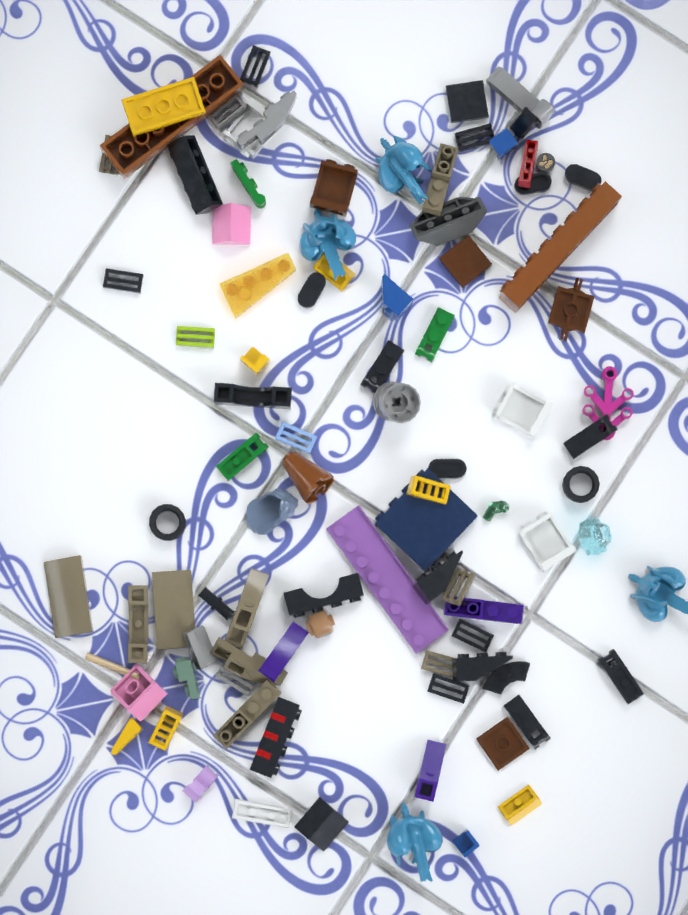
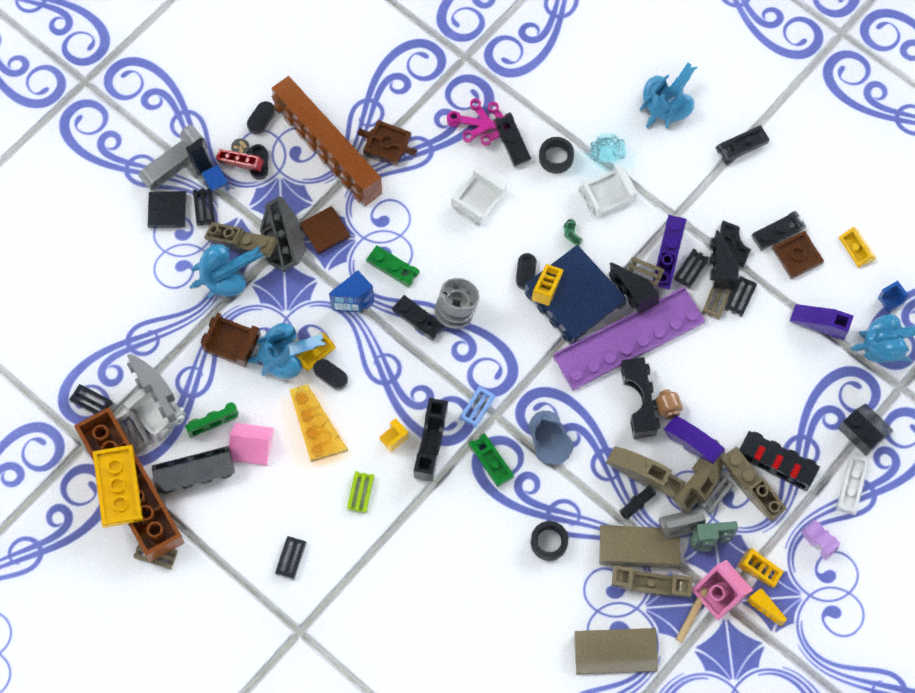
camera: 80 degrees left, 15 degrees down
(307, 476) = (518, 398): dark orange cone -> none

